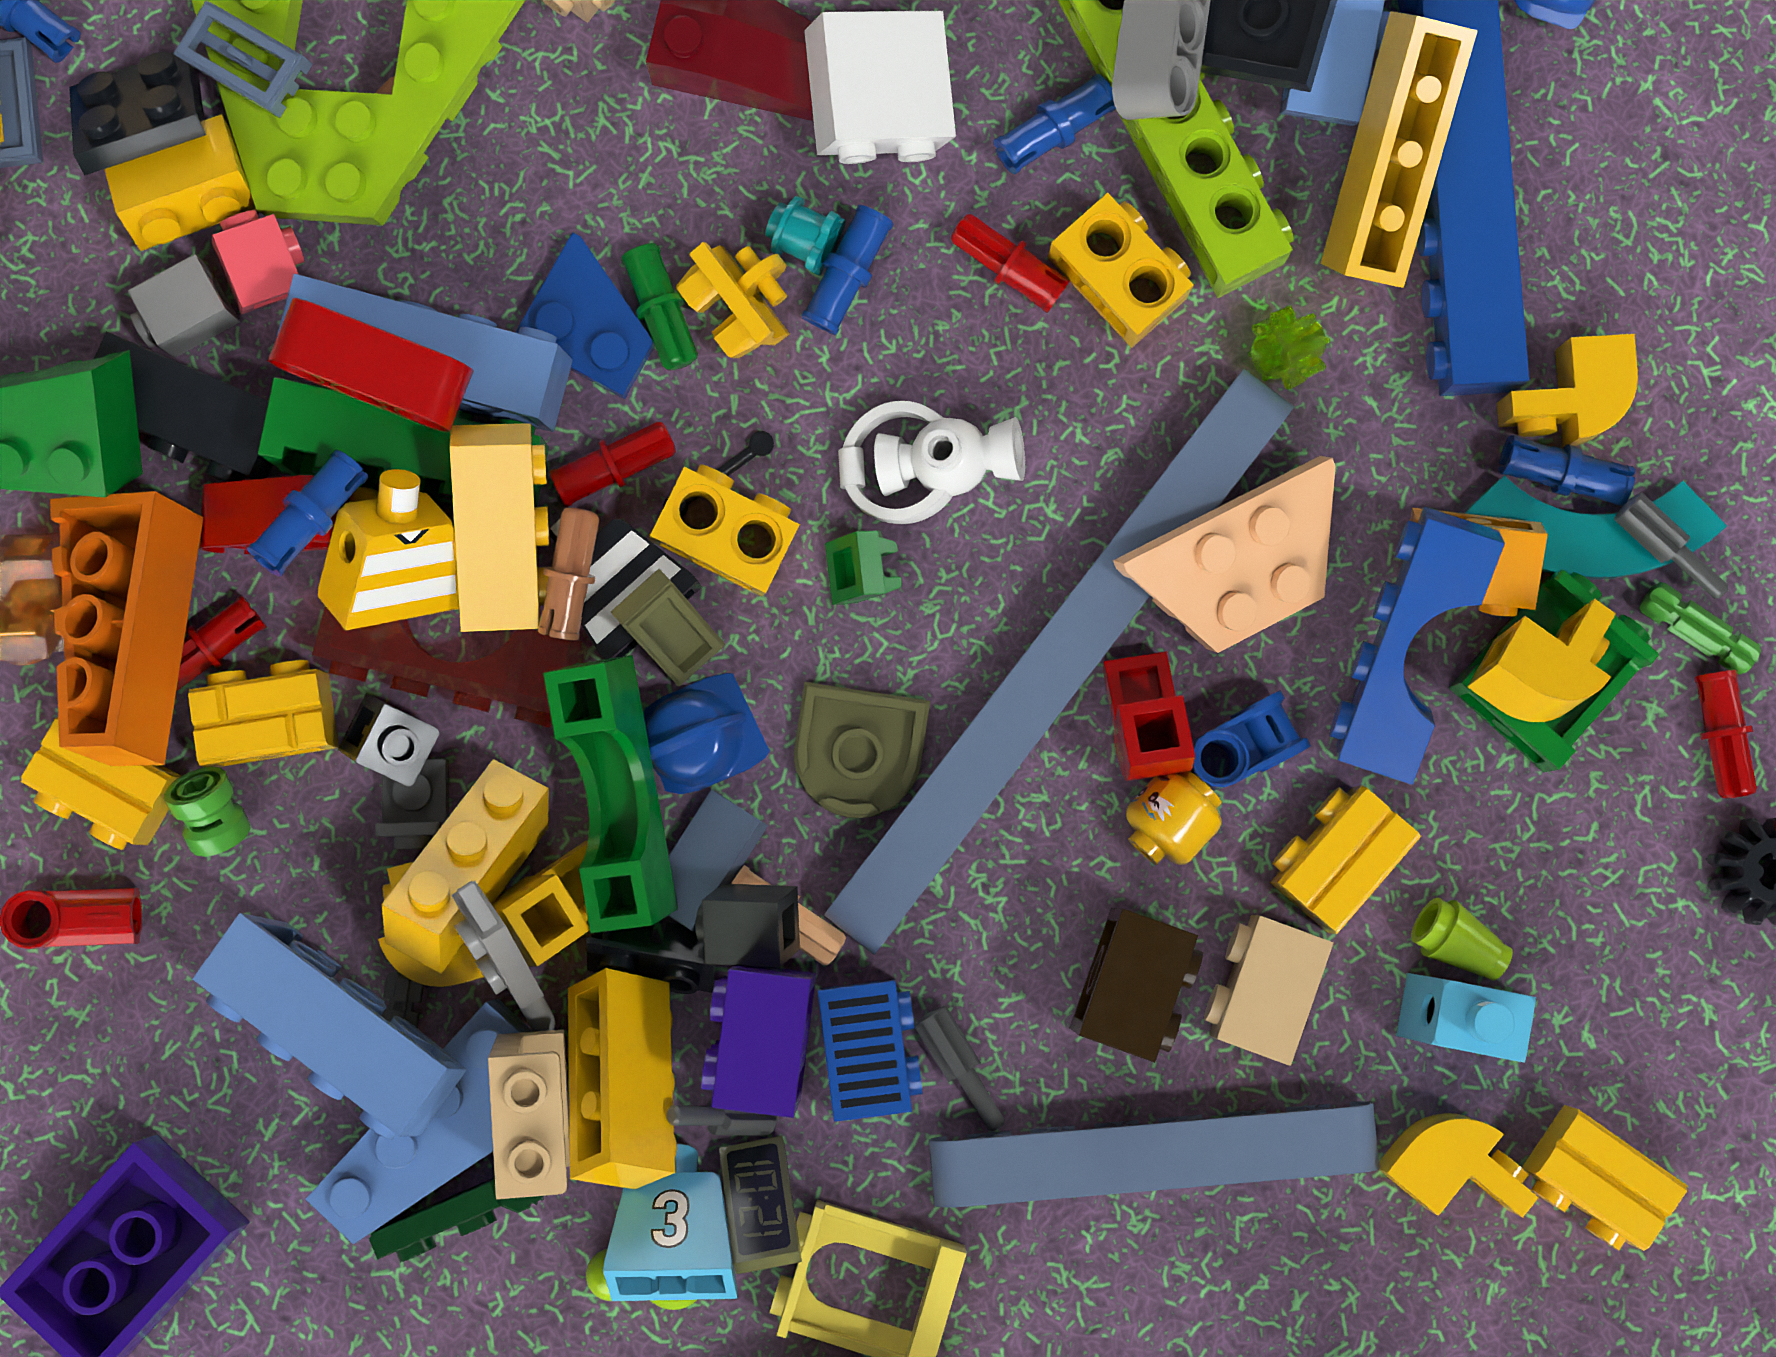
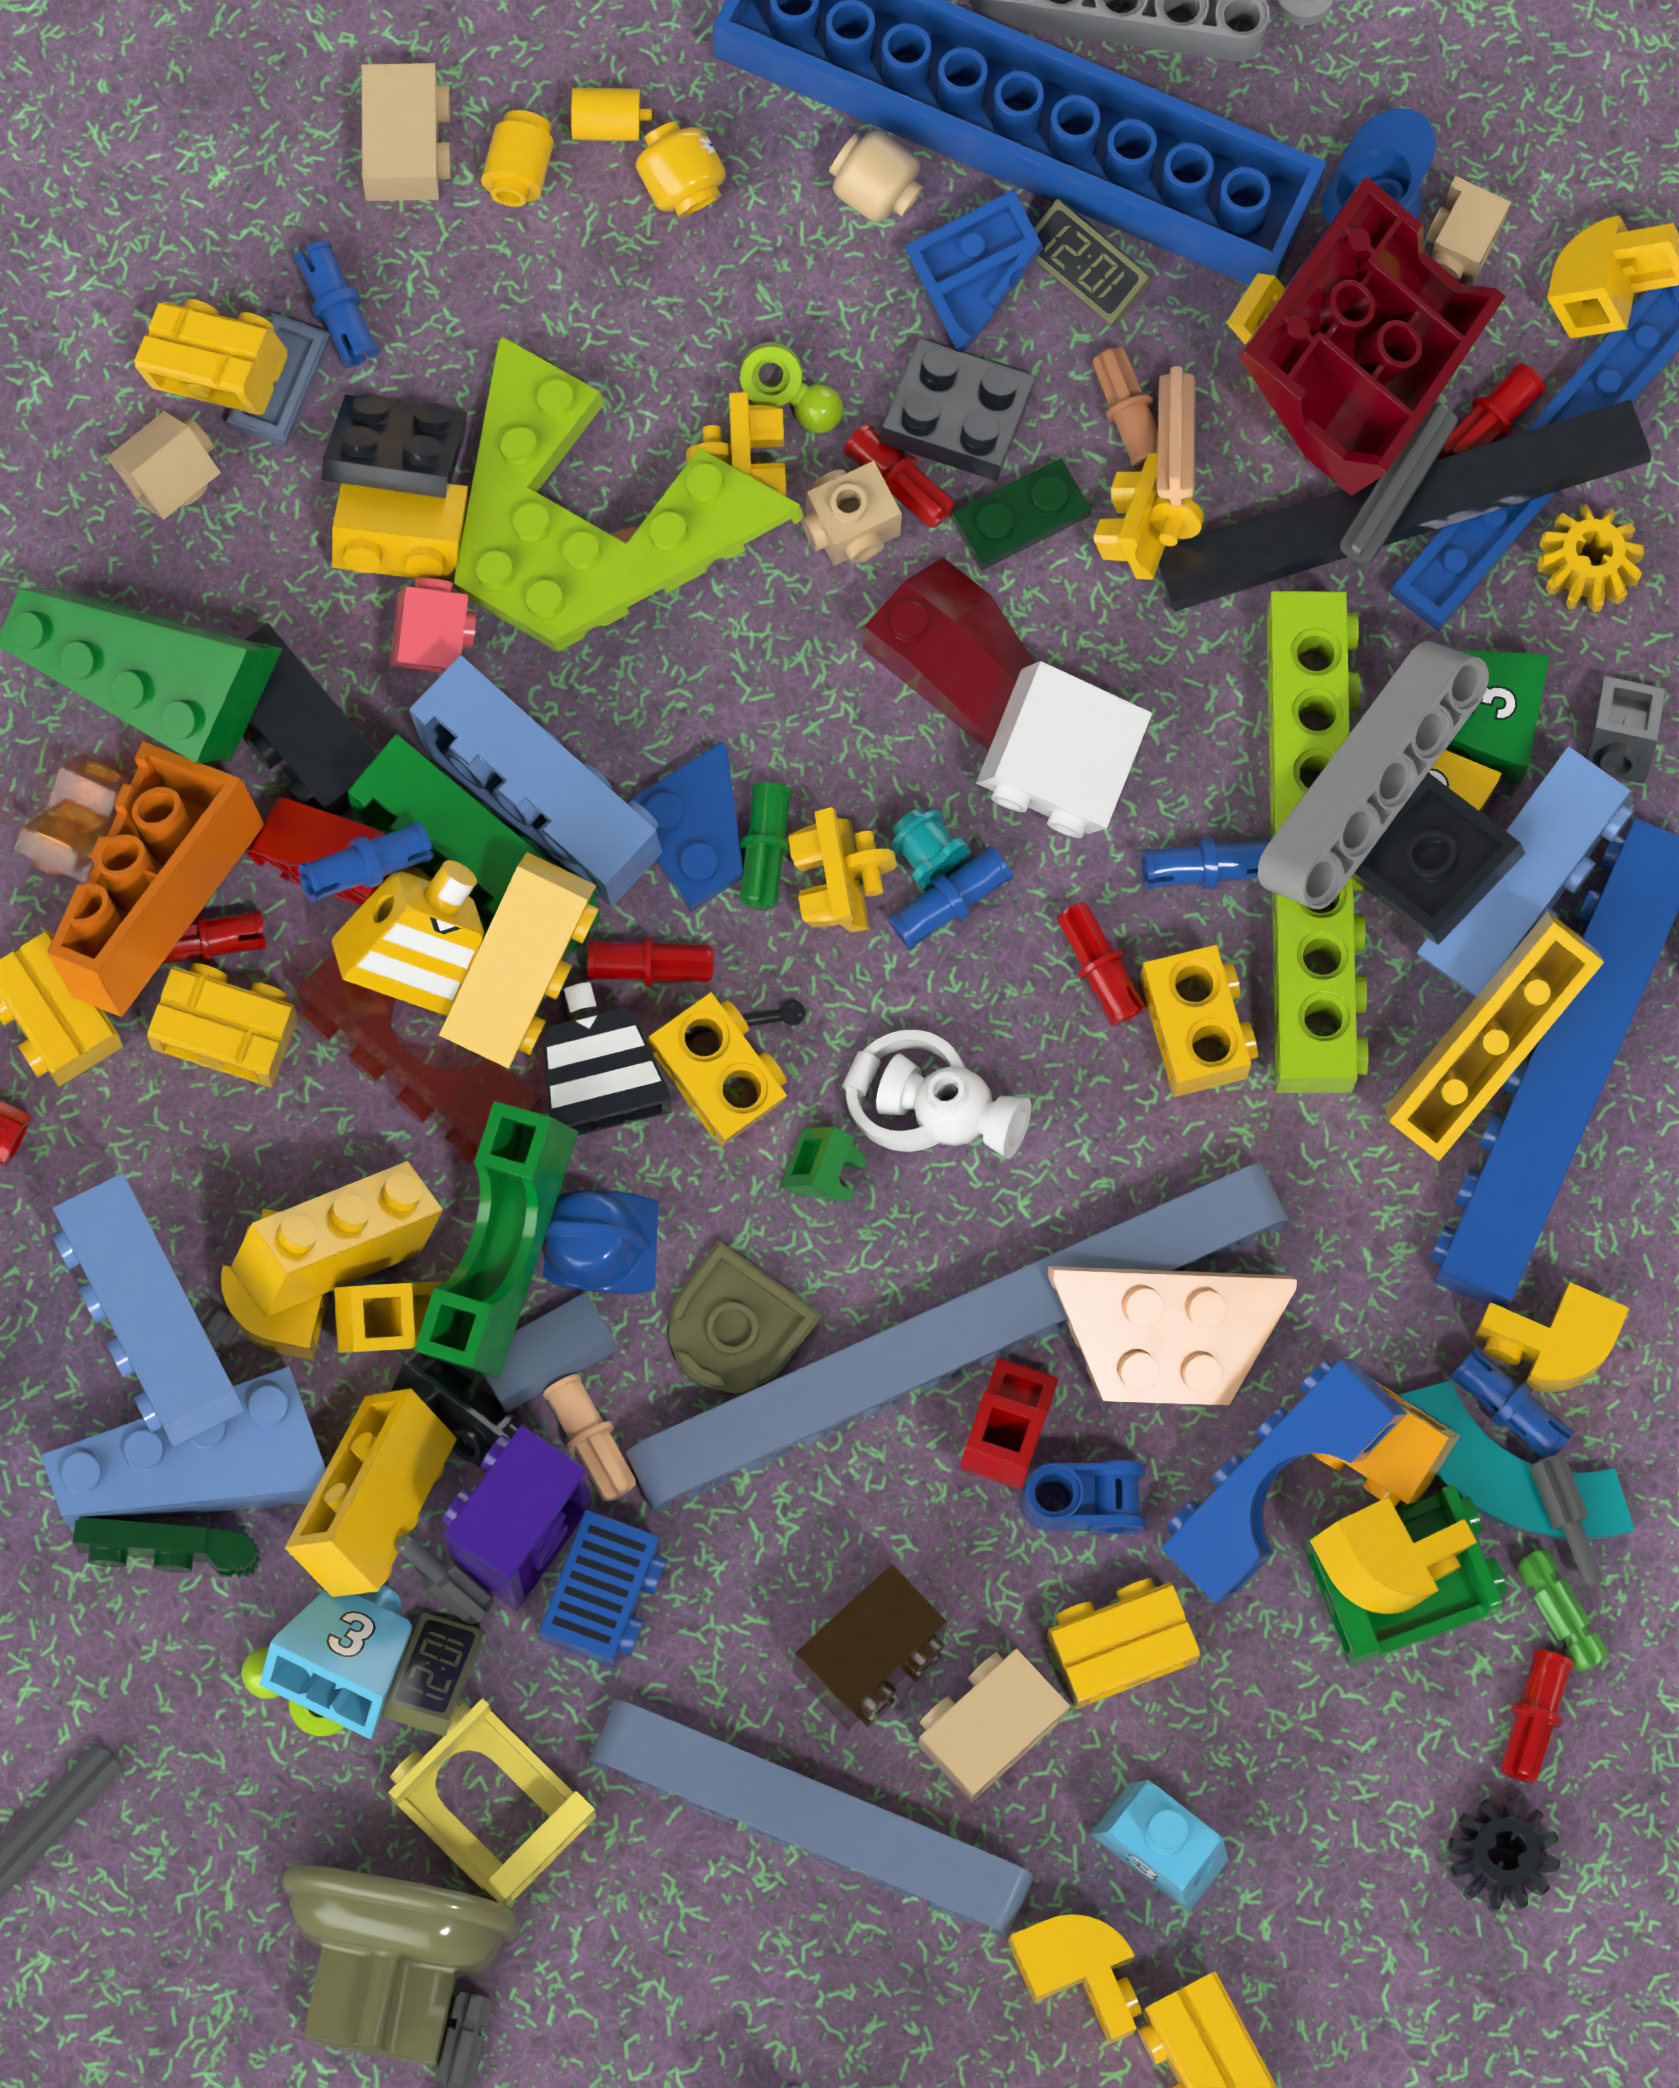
camera: 25 degrees right, 10 degrees down
(181, 307) = (341, 634): light grey brick -> none
(207, 811) = (131, 1080): bright green wheel -> none
(281, 81) = (535, 485): sand blue tile -> none
(370, 365) = (486, 765): red beam -> none
(388, 740) = (323, 1100): bracket -> none
(416, 811) = (314, 1164): dark grey bracket -> none
(499, 956) = (326, 1334): light grey plate -> none
(529, 1113) = (285, 1463): tan panel -> none
(569, 574) = (560, 1033): nougat axle -> none
(668, 627) = (622, 1127): olive tile -> none
(749, 925) = (558, 1416): pearl dark grey brick -> none
(957, 1061) = (677, 1645): dark grey axle -> none
(1173, 818) = (986, 1527): yellow head -> none
(1288, 347) = (1312, 1165): clear neon green gear -> none
(1459, 939) = (1191, 1773): lime cone -> none

